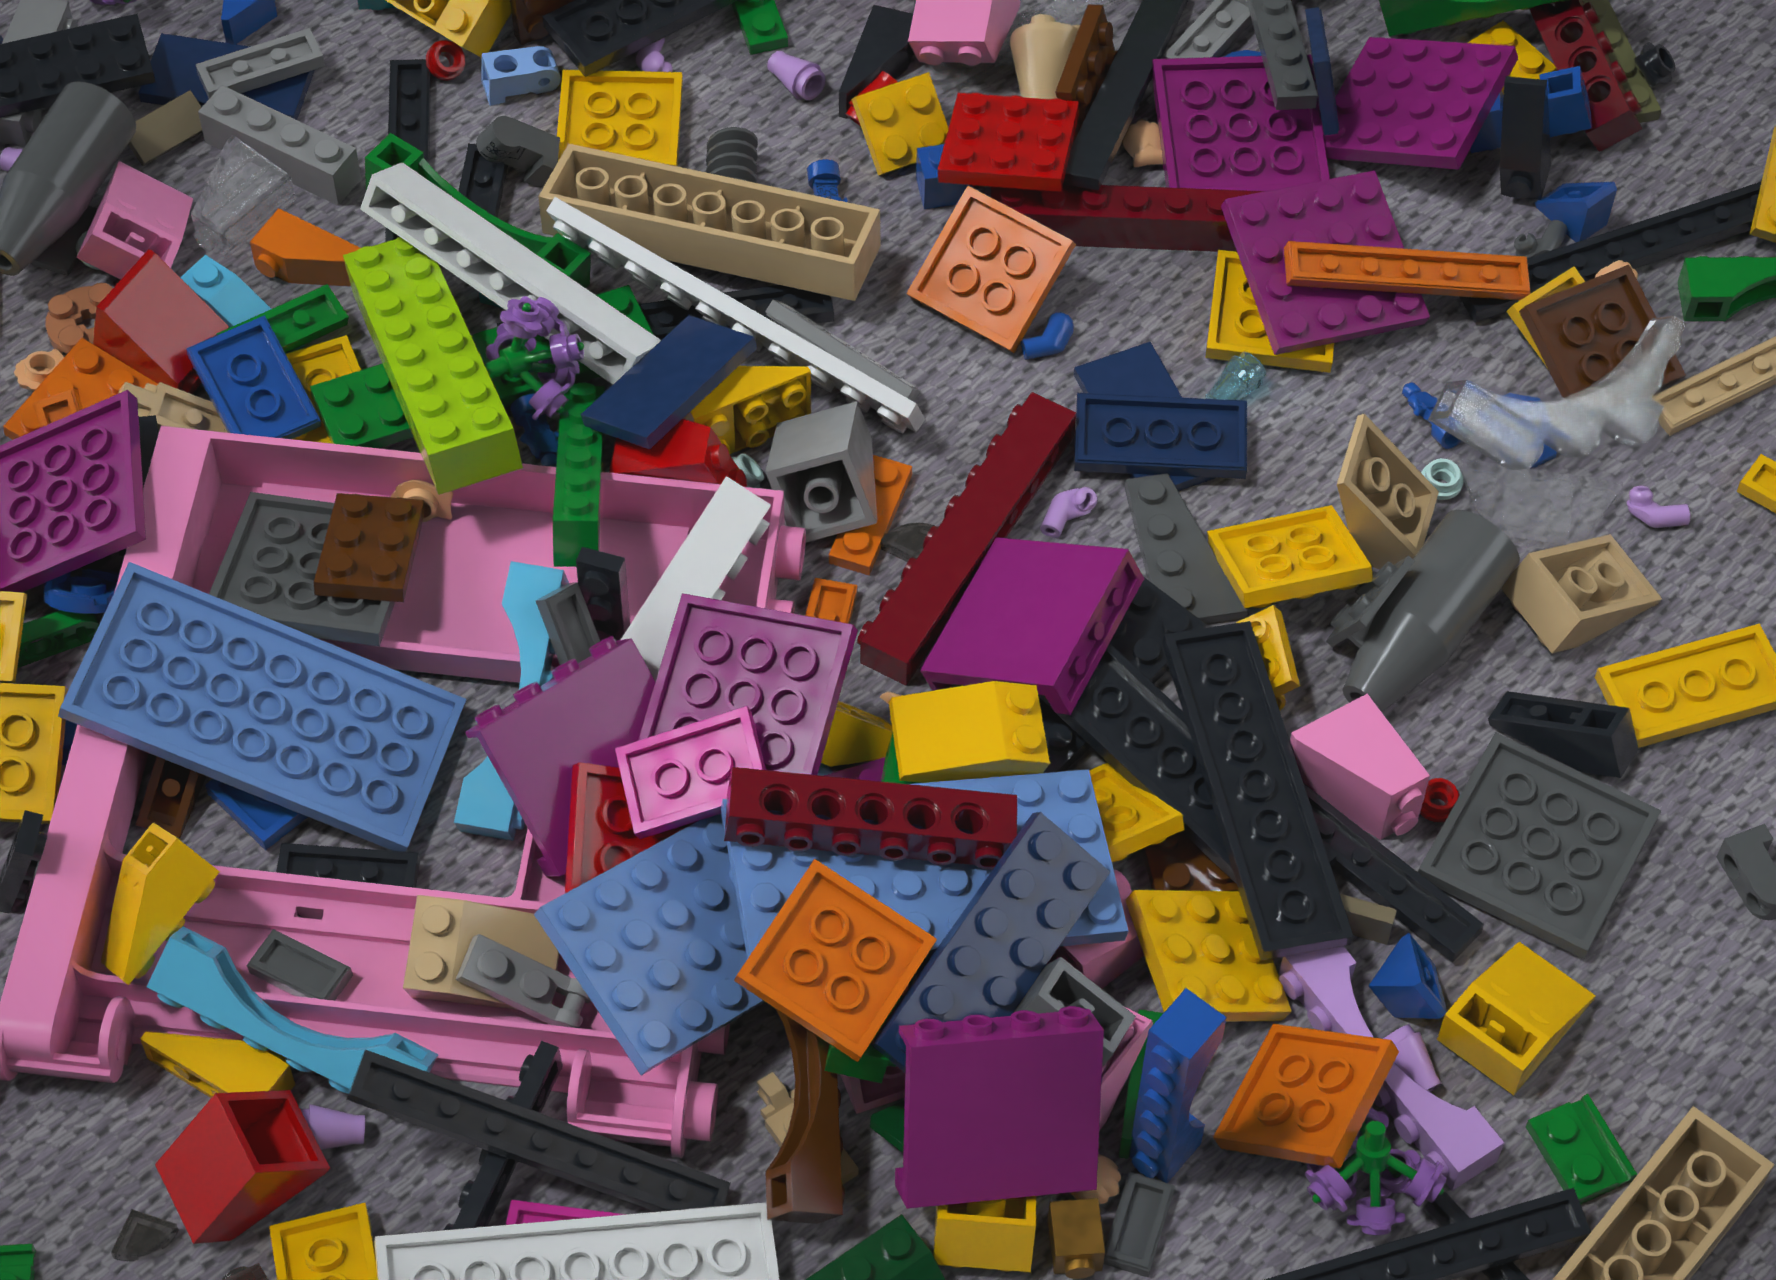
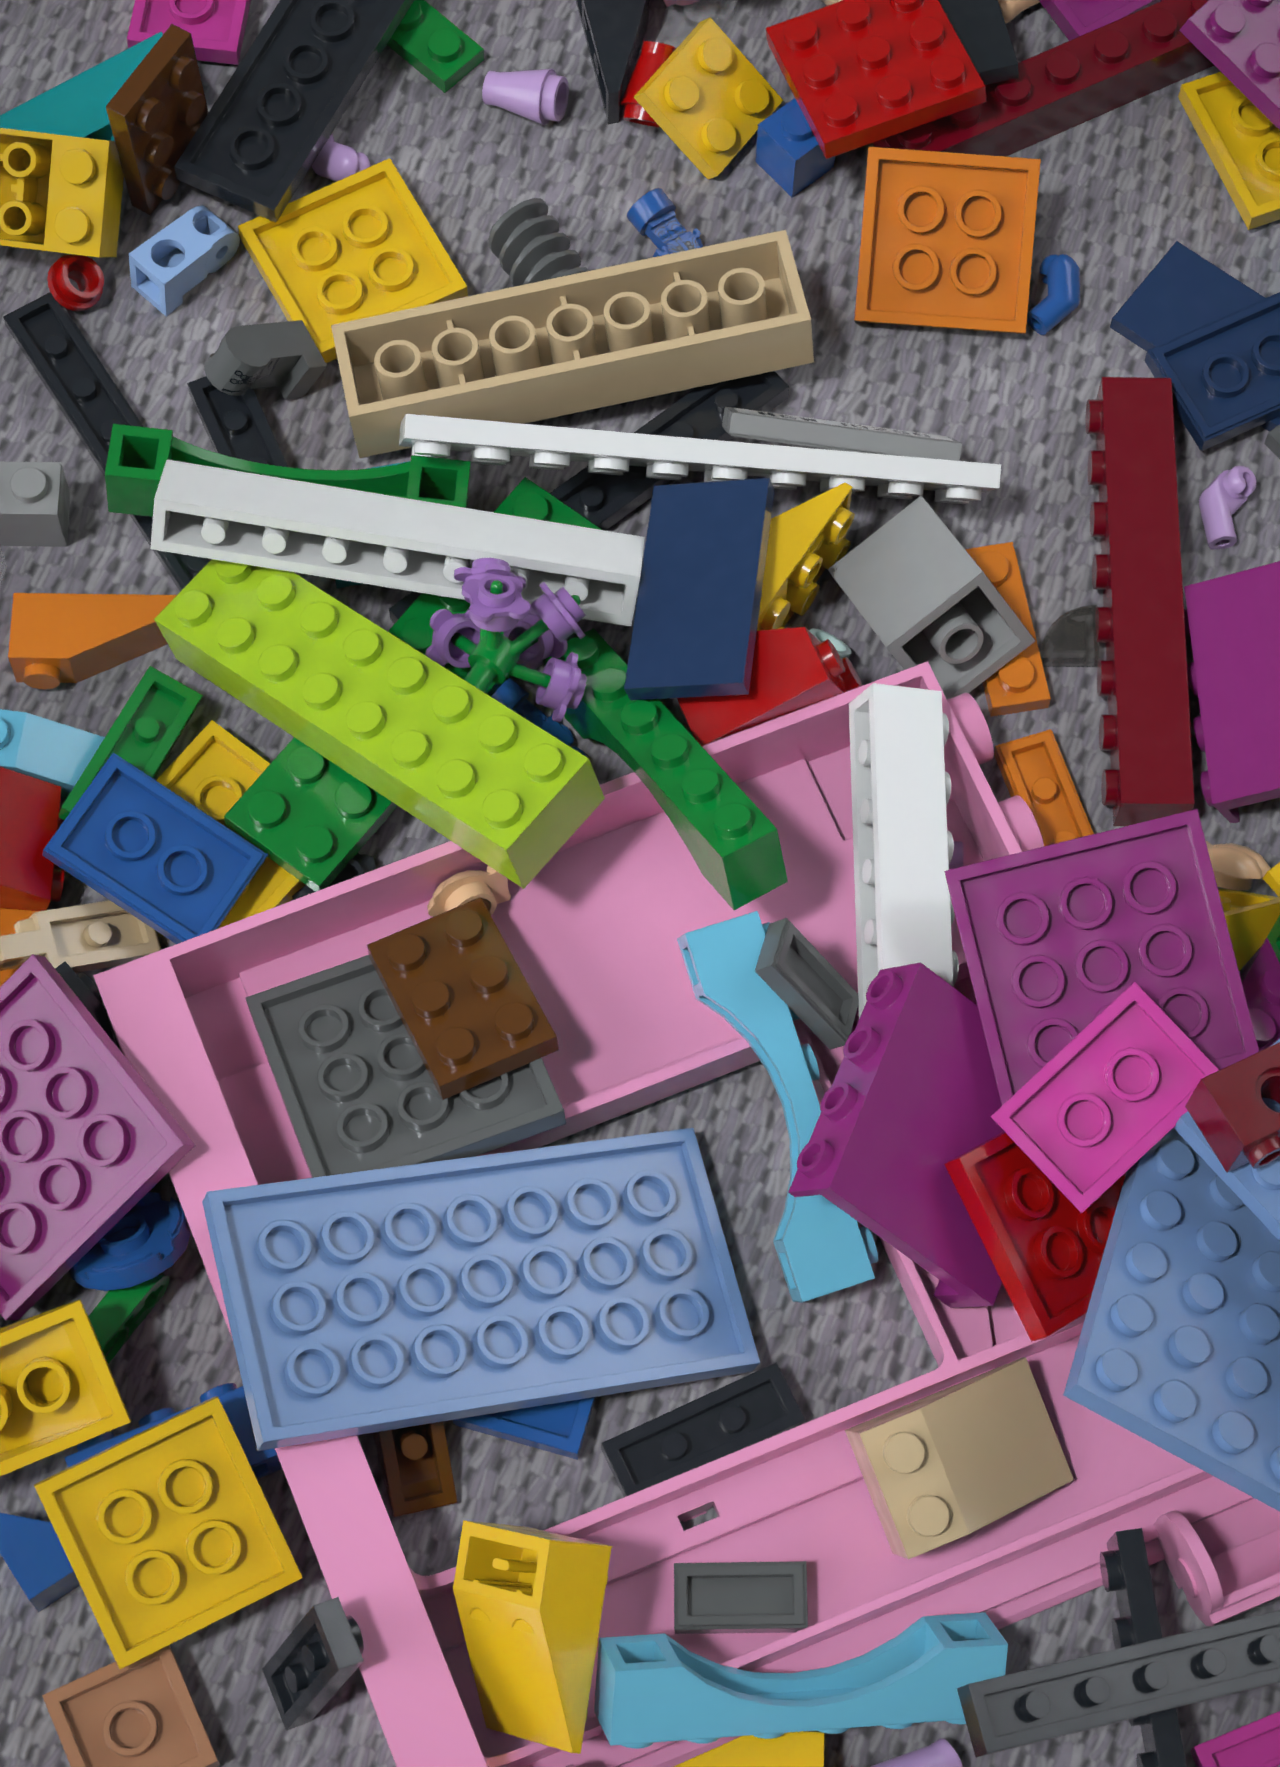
camera: 30 degrees left, 10 degrees up
(522, 982) = (1040, 1468): light grey plate -> none
(605, 591) = (816, 905): black plate -> none

